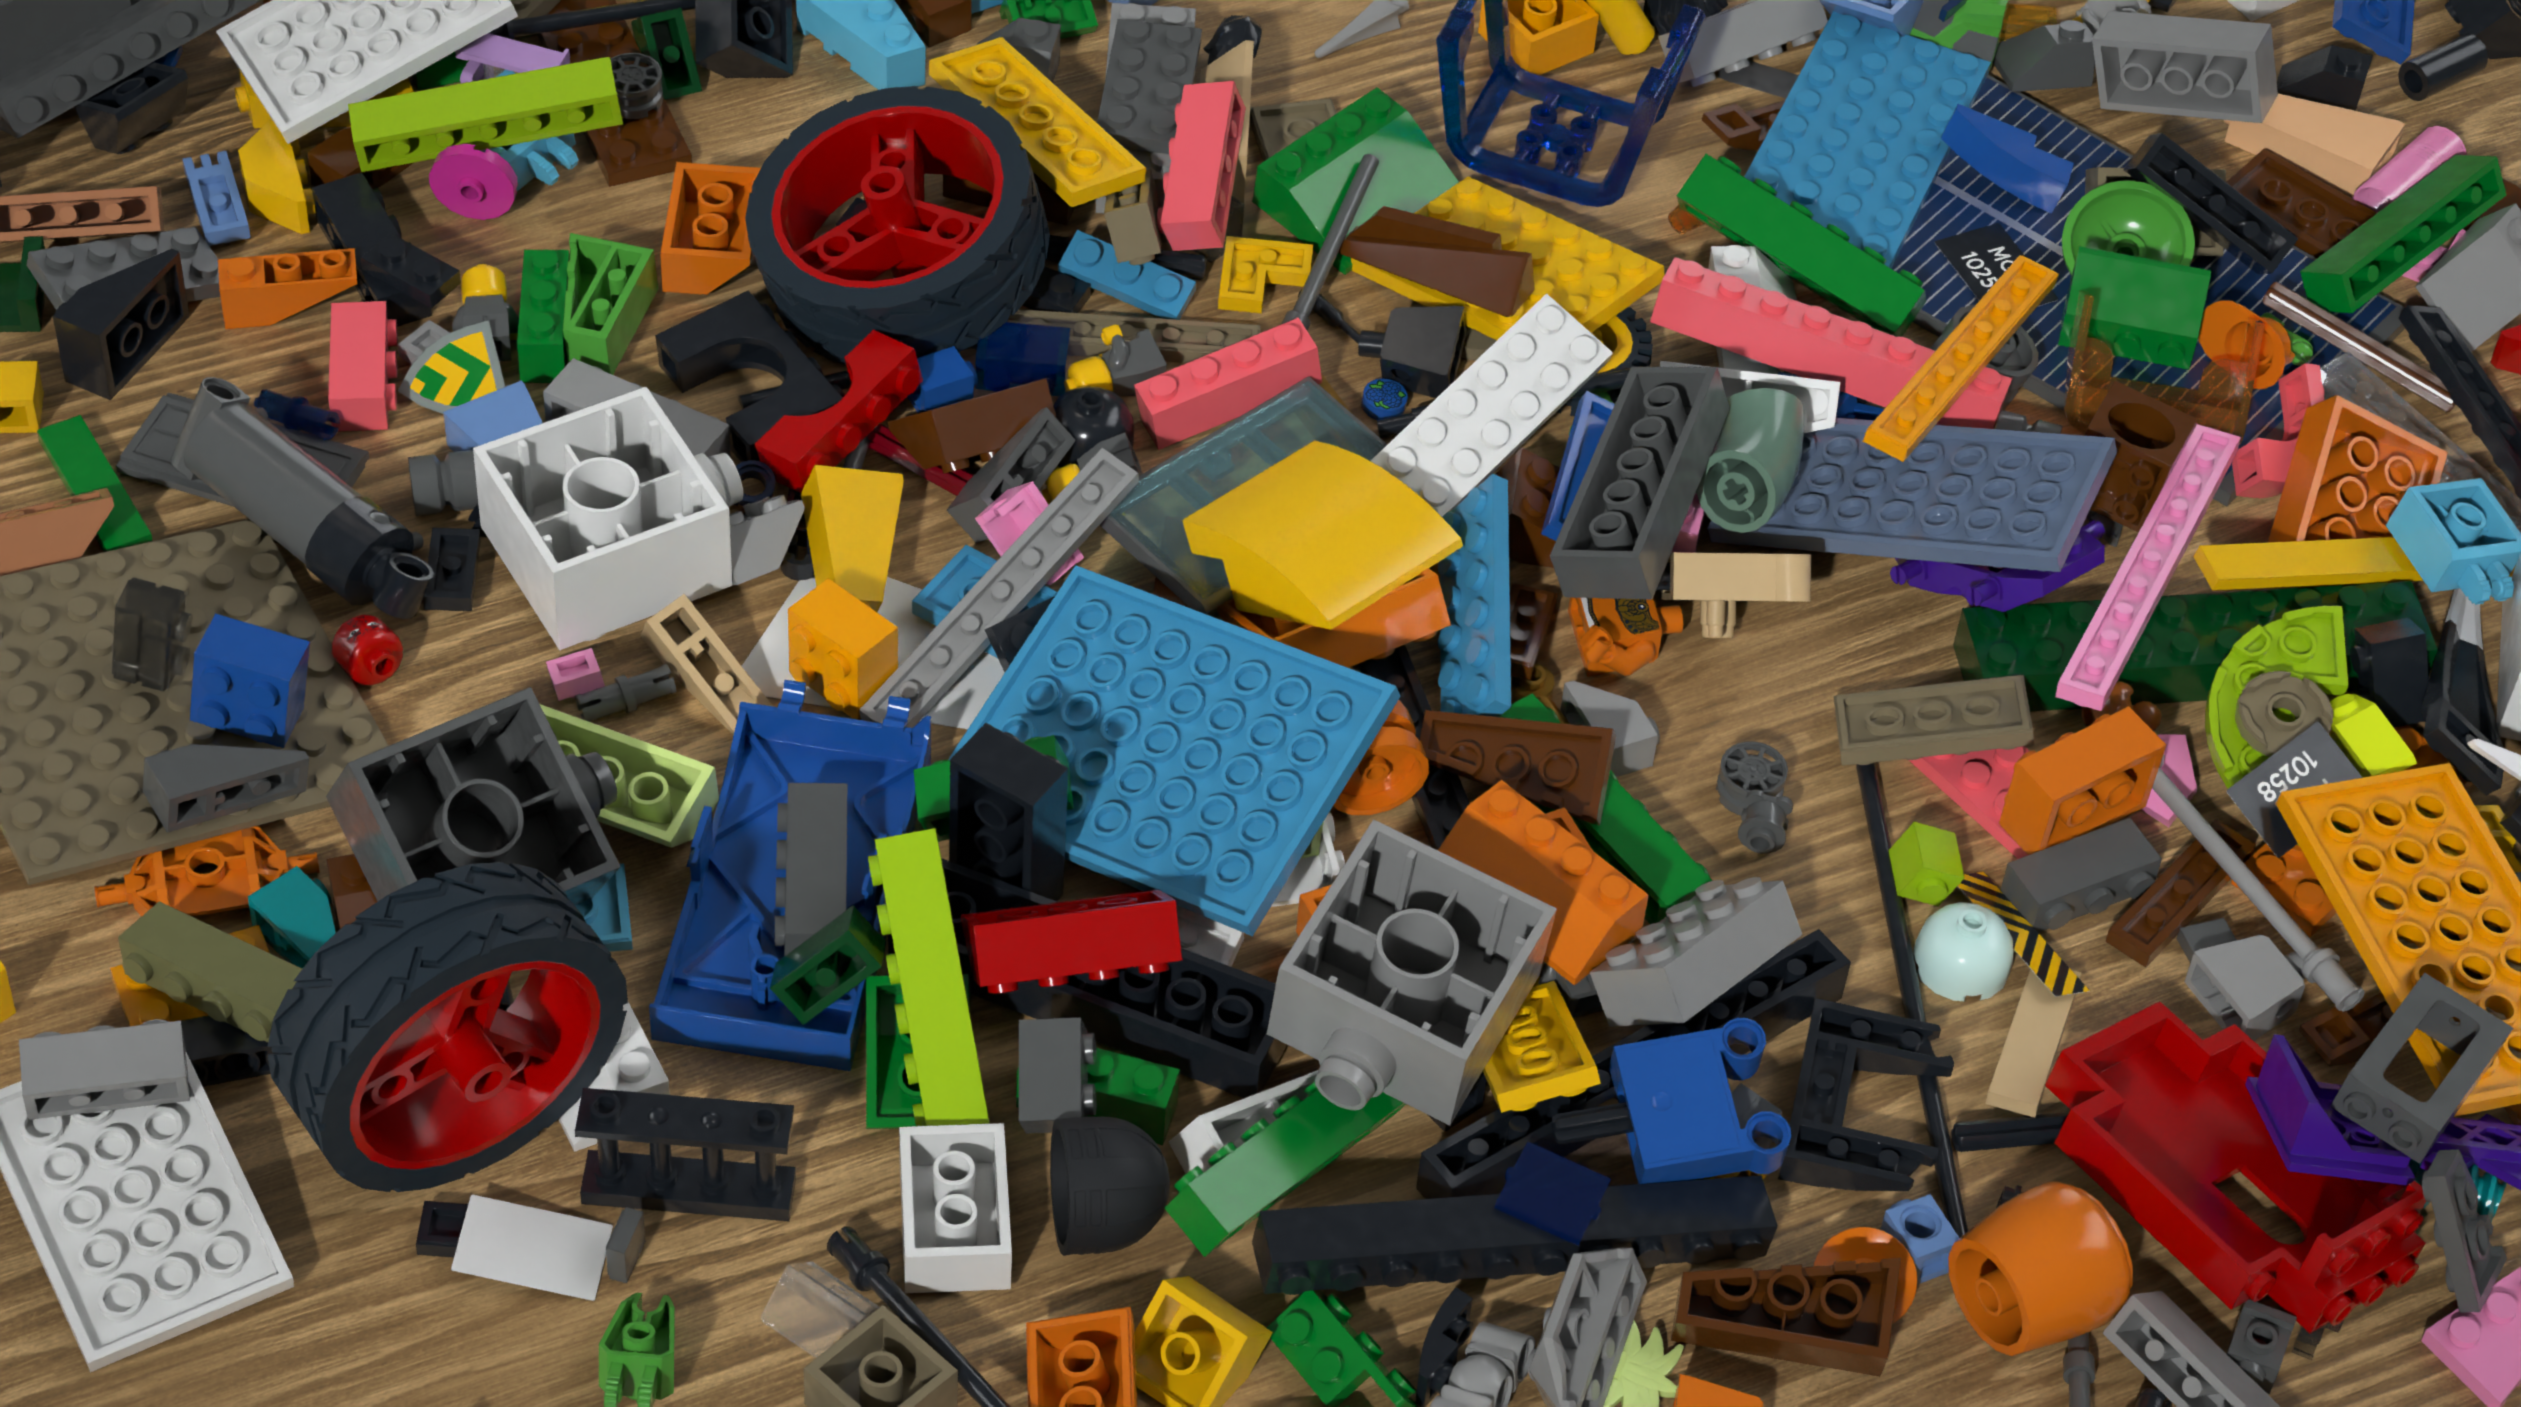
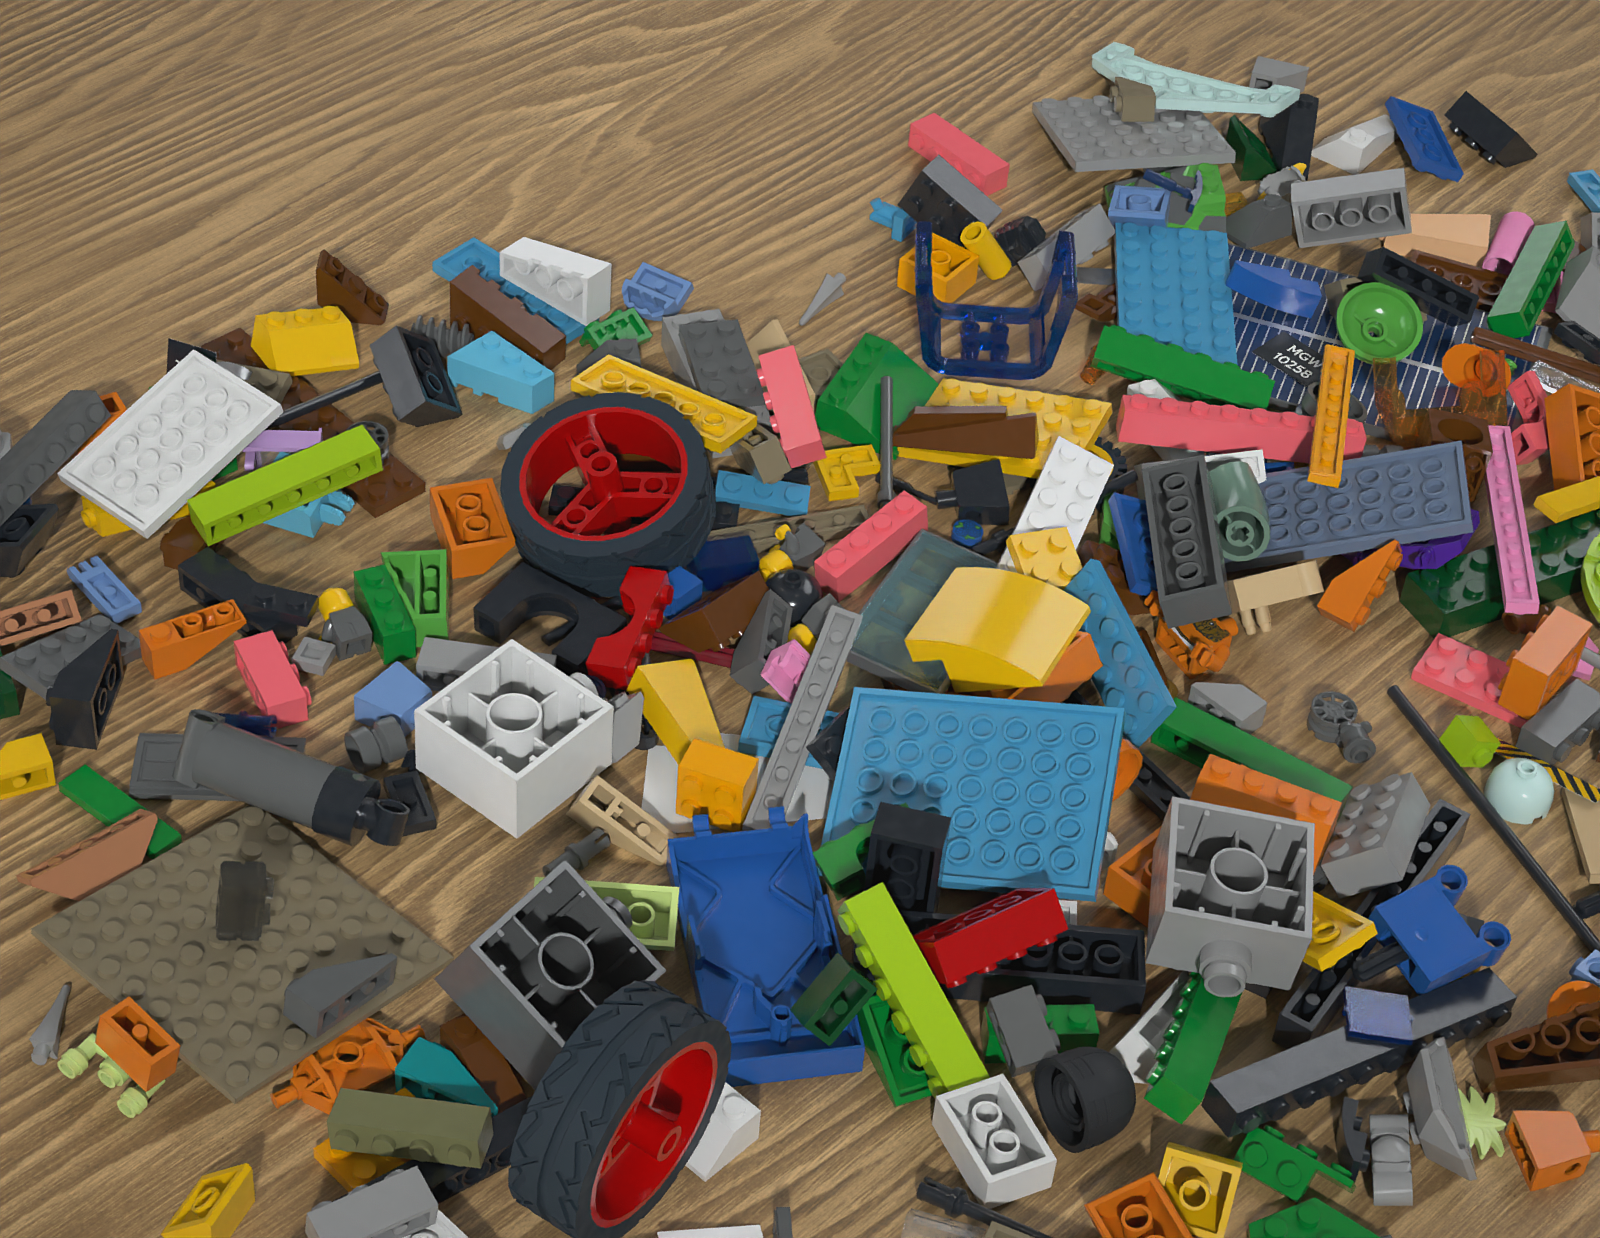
camera: 20 degrees left, 5 degrees down
(249, 680) = (327, 914): blue brick -> none
(276, 179) = (144, 567): yellow slope -> none
(367, 646) = (381, 873): red head -> none
(455, 369) = (343, 667): sticker -> none
(473, 182) = (290, 534): dark pink plate -> none
(575, 674) = (535, 852): bright pink plate -> none
(667, 41) = (373, 406): dark green slope -> none
(682, 1183) = (807, 1178): black fence -> none
(812, 860) = (777, 936): dark grey brick -> none
(1231, 33) = (752, 321): black piece -> none
(1445, 457) = (1045, 556): none -> yellow plate
(1538, 759) = (1194, 736): reddish brown wing -> none
(1836, 1044) = (1500, 863): black wedge -> none
(1875, 612) = (1353, 591): none -> orange slope
(1933, 720) = (1426, 649): dark tan piece -> none
(2139, 306) = (1420, 355): green slope -> none
(2326, 77) = (1431, 196): black slope -> none
(2443, 67) = (1486, 177): black brick -> none

